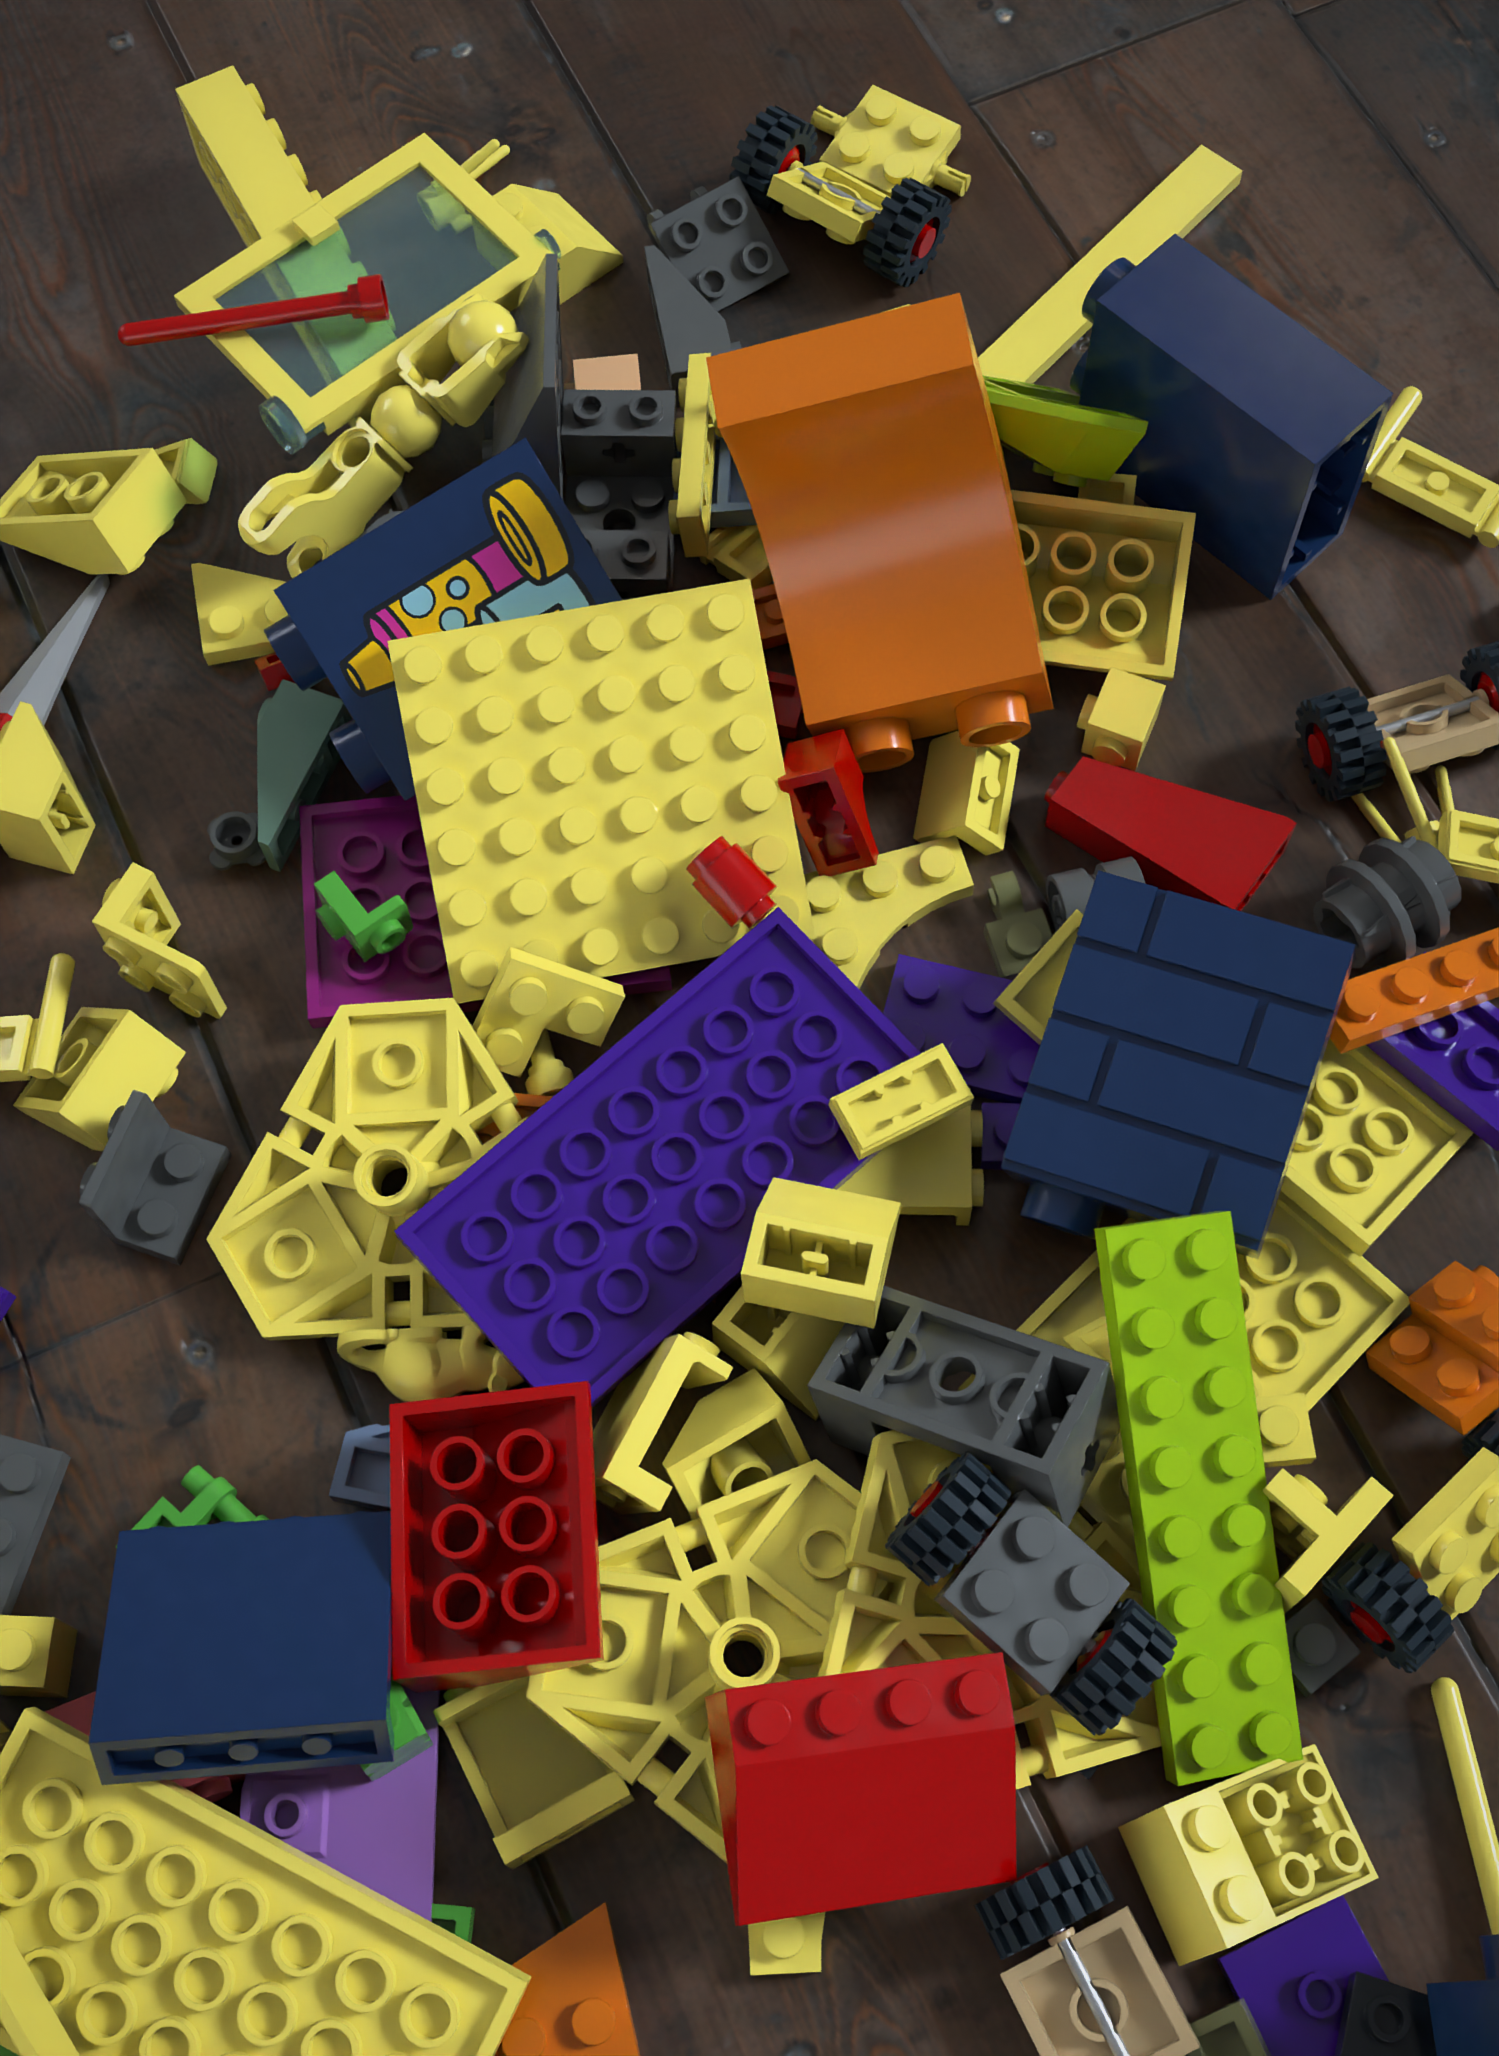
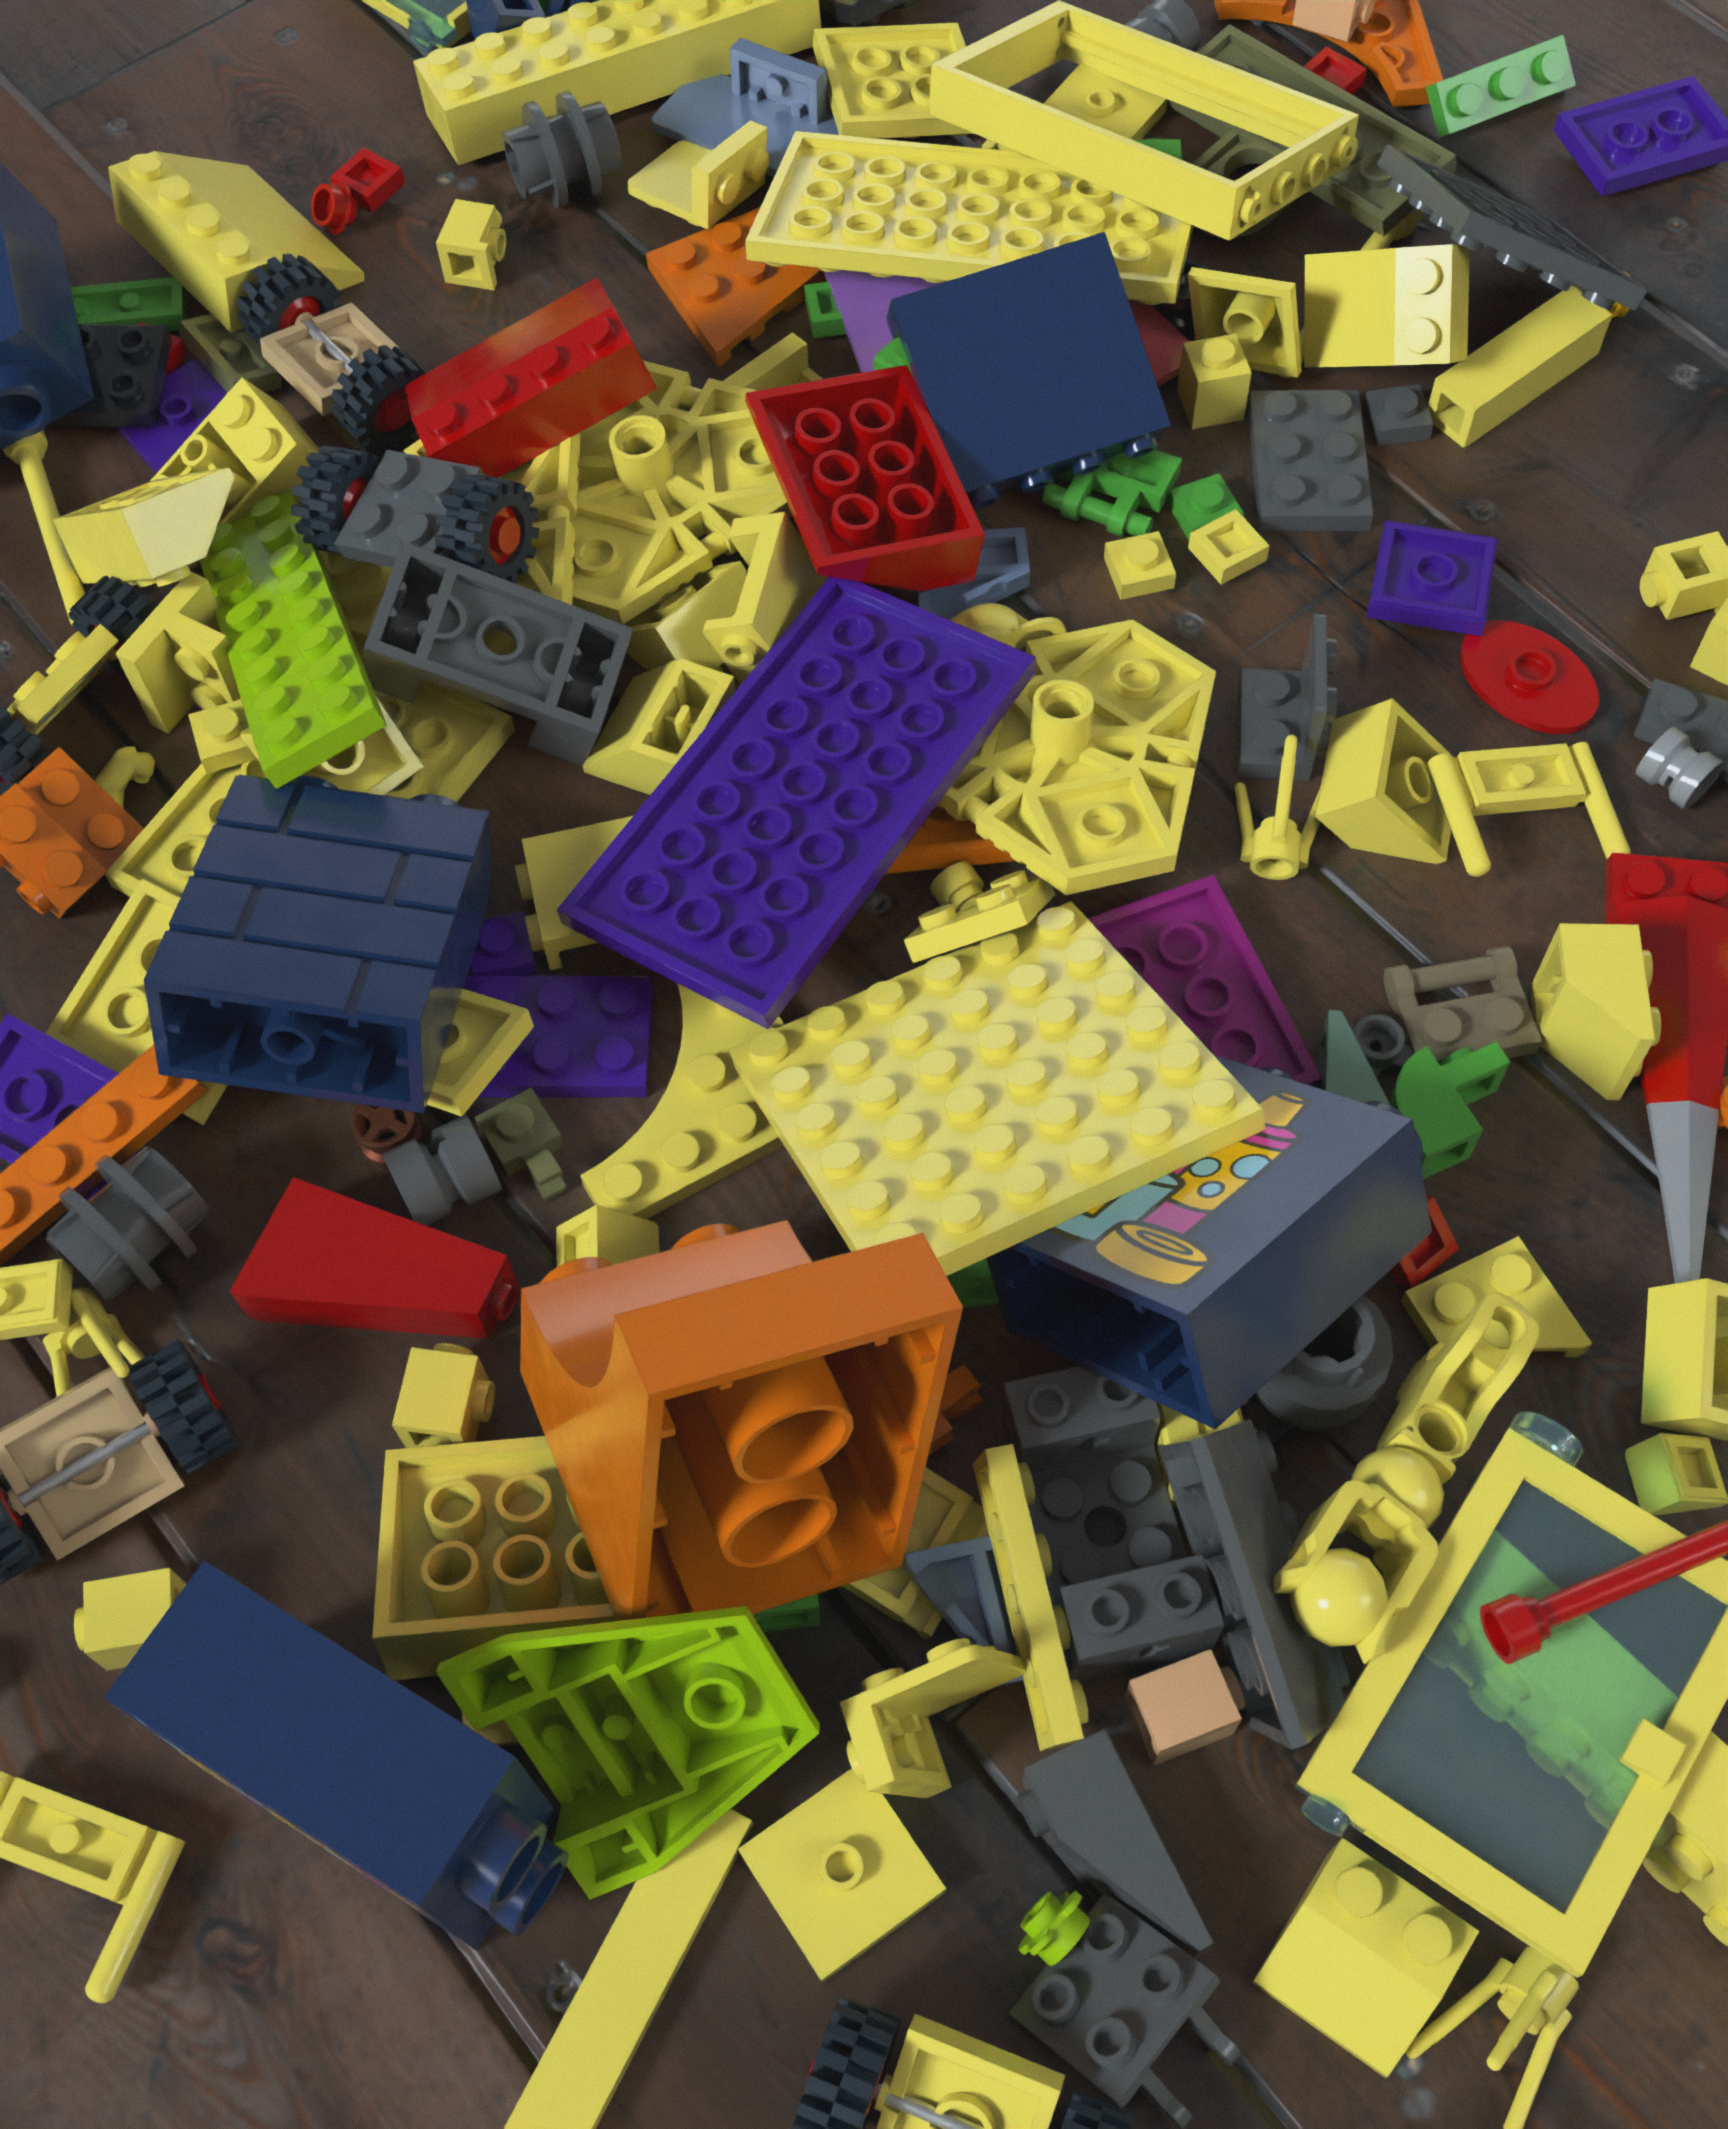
camera: 165 degrees right, 5 degrees down
(115, 1492) = (1201, 503): none -> bright green plate
(117, 1419) = (1228, 546): none -> light yellow plate
(136, 928) = (1387, 875): light yellow bracket -> none
(153, 839) = (1468, 1020): none -> dark tan plate
(217, 774) = (1439, 1098): none -> bright green brick
(220, 1432) = (1139, 565): none -> light yellow plate
(229, 1048) = (1276, 847): none -> light yellow plant
(366, 932) = (1201, 946): bright green bracket -> none
(732, 883) = (818, 1023): red brick -> none
(744, 296) = (1053, 1926): none -> lime plate
(820, 1252) = (641, 711): light yellow slope -> none
(829, 803) = (750, 1178): red arch -> none
(900, 1101) = (597, 861): light yellow plate -> none
(1354, 1700) = (147, 530): none -> light yellow slope
(1384, 614) = (122, 1614): none -> light yellow brick
(1397, 1440) = (125, 766): none -> light yellow arm

